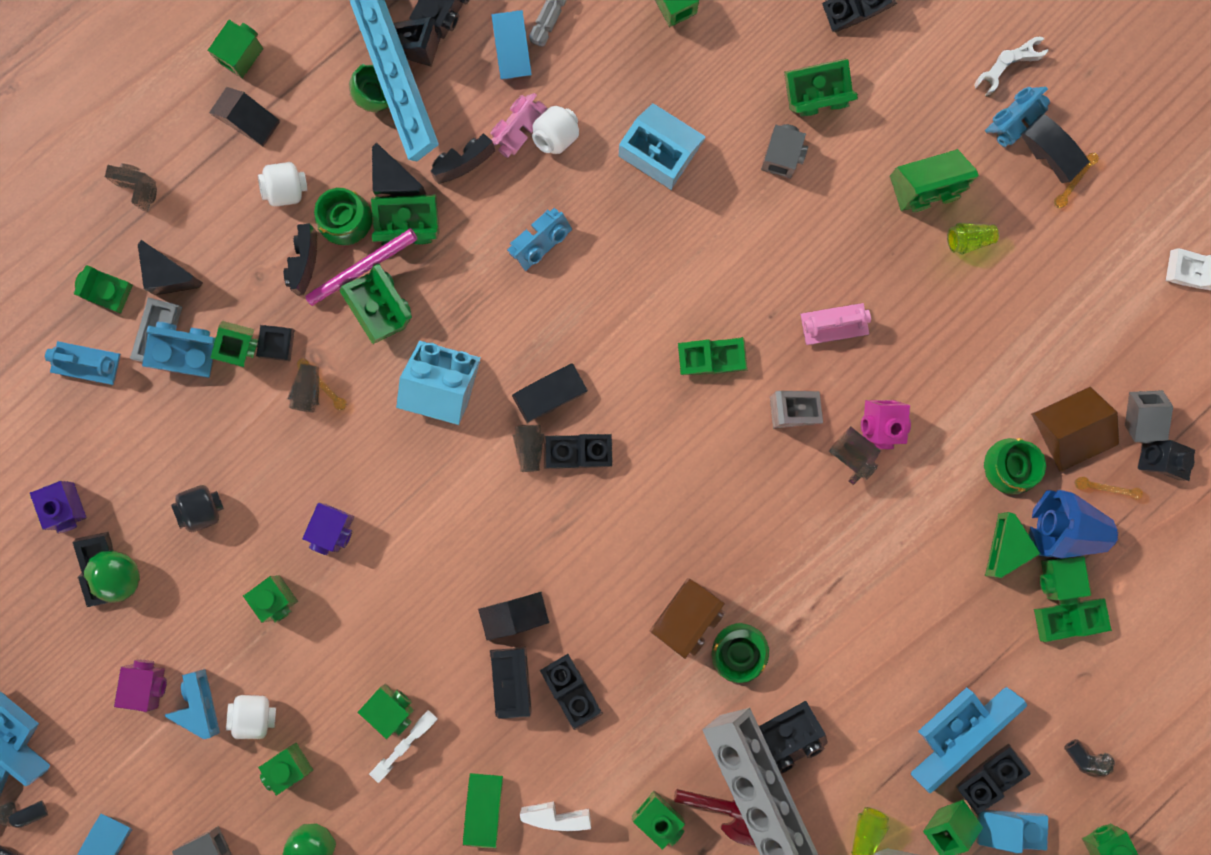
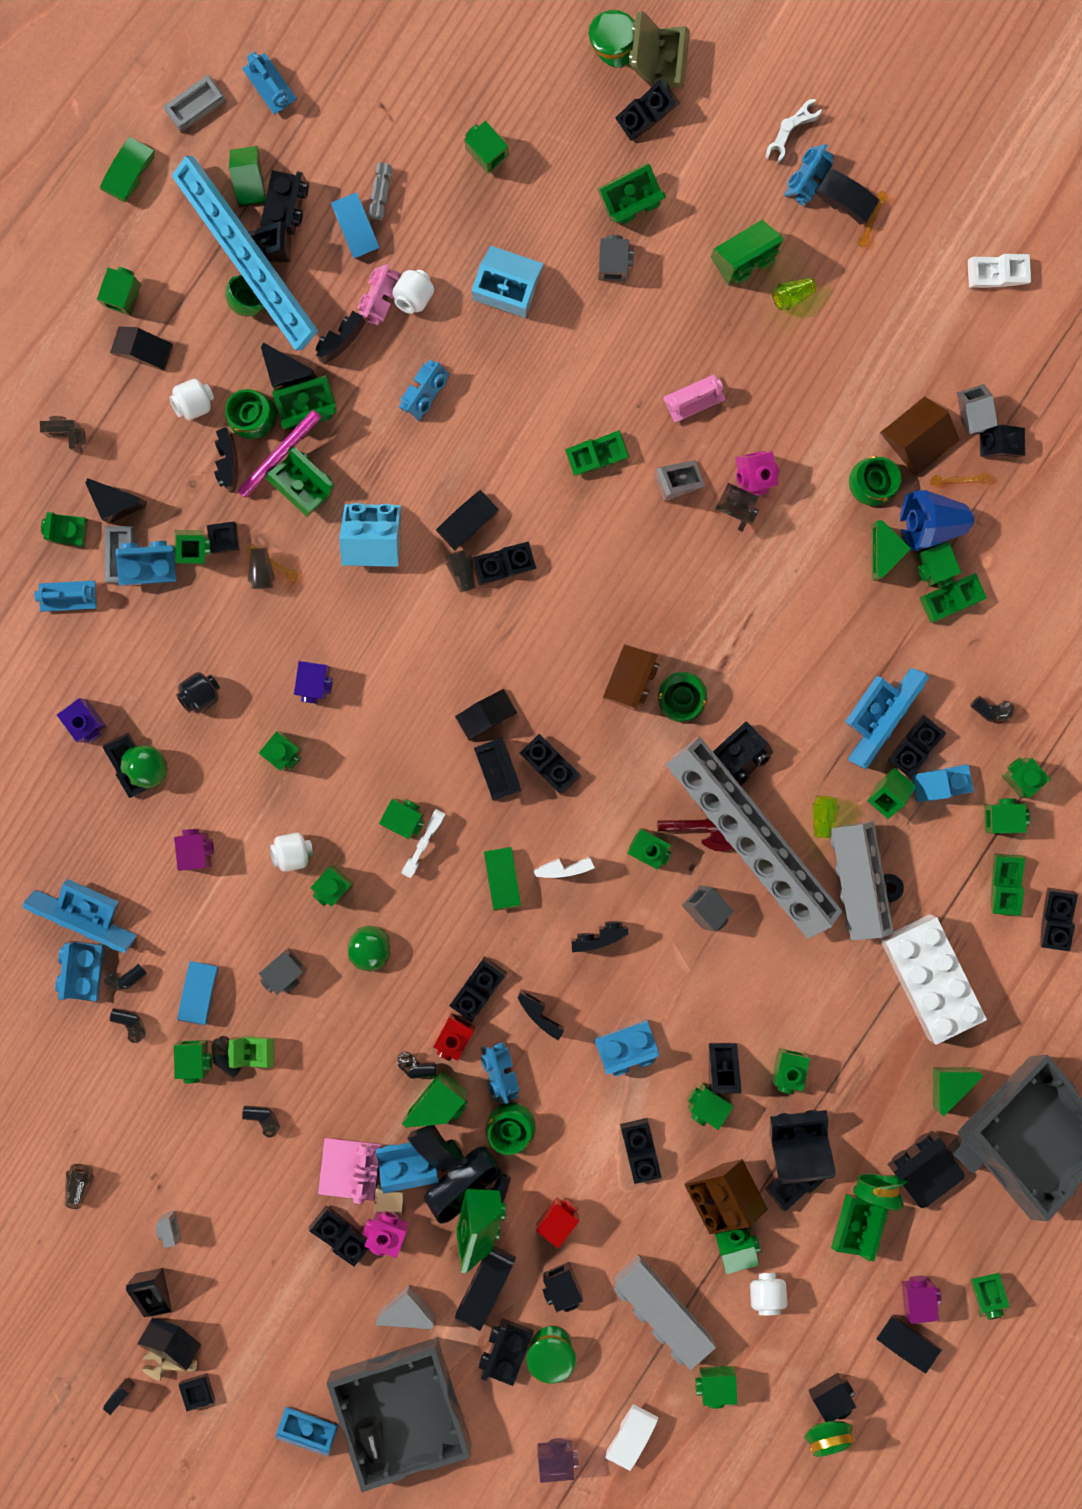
camera: 10 degrees left, 5 degrees up
(200, 715) = (248, 861): dark azure slope -> none

